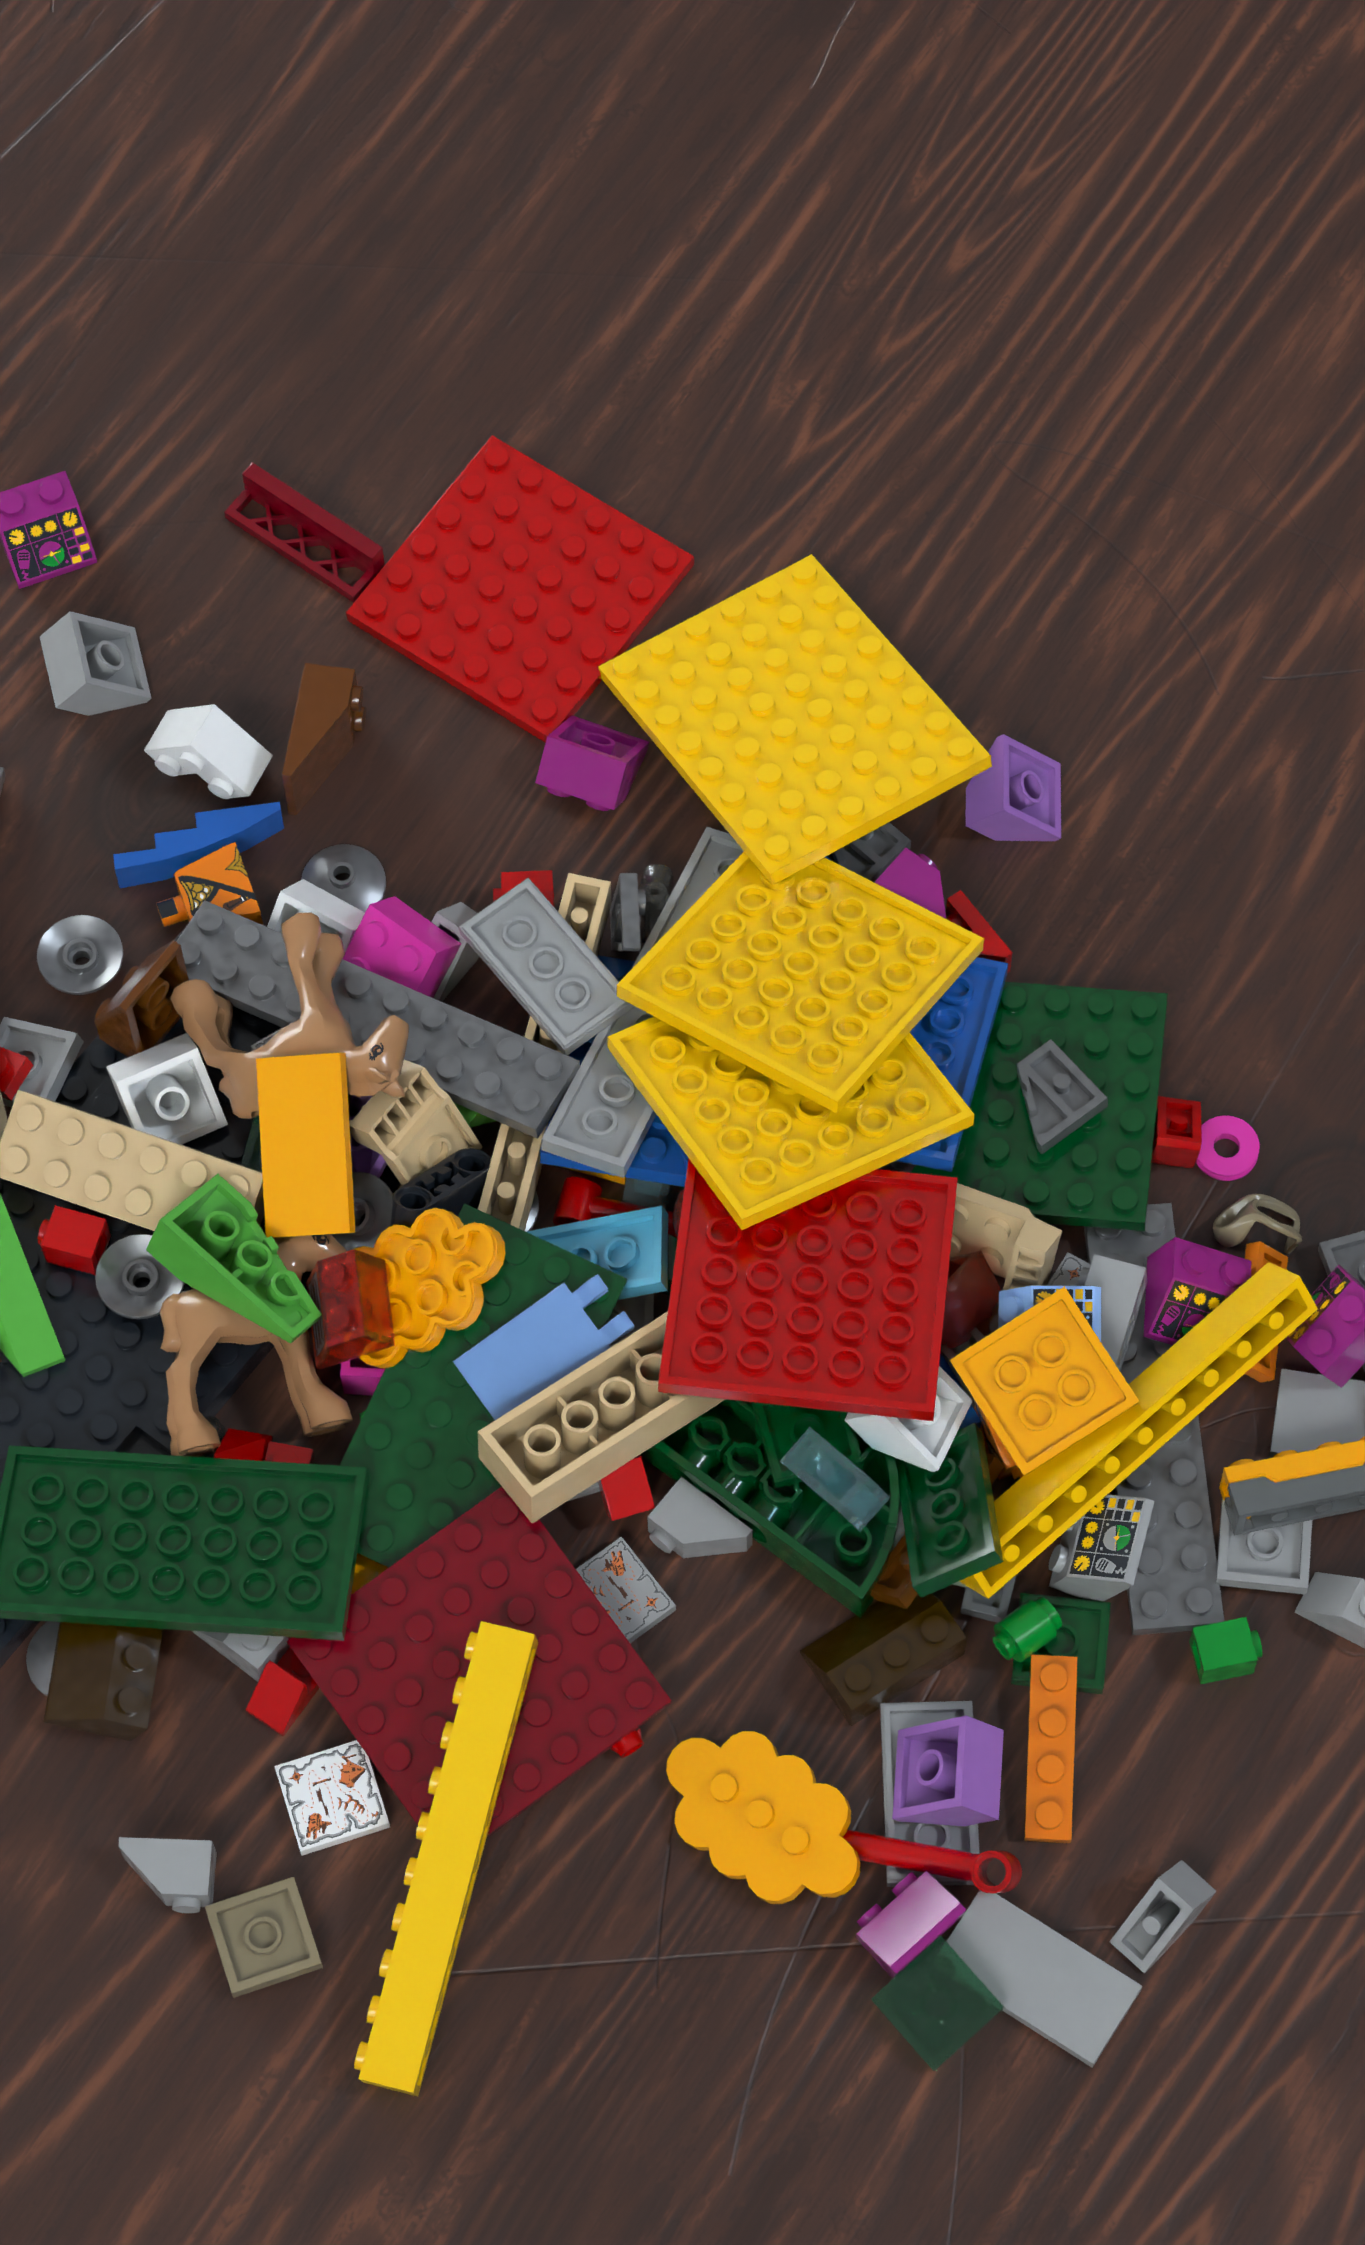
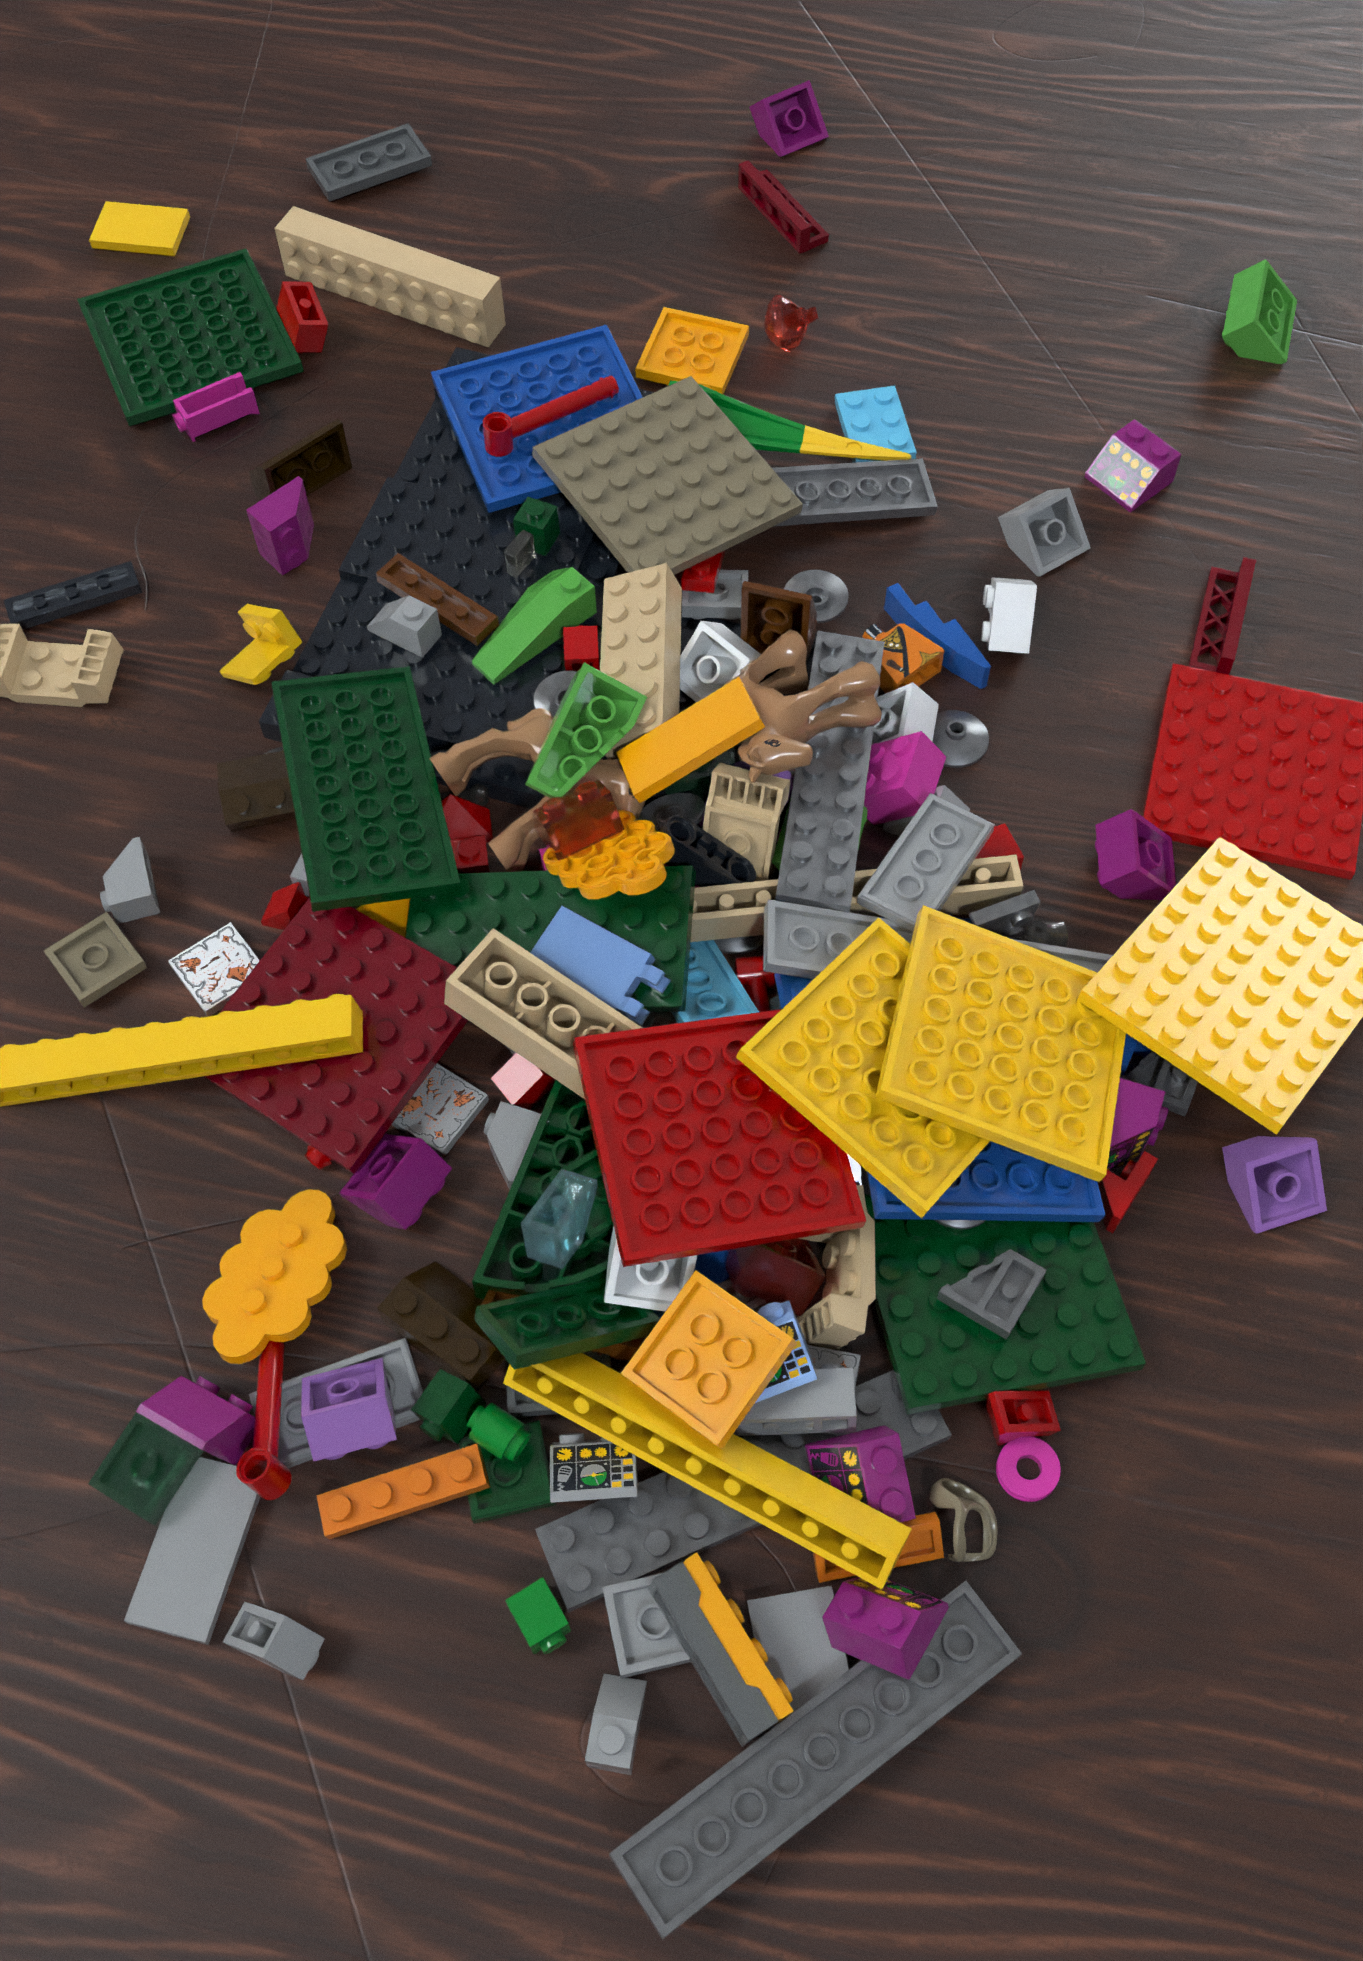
camera: 70 degrees right, 5 degrees down
(321, 731) = (1057, 670): reddish brown slope -> none
(696, 1660) = (397, 1180): none -> magenta slope
(979, 1676) = (446, 1407): none -> dark green brick

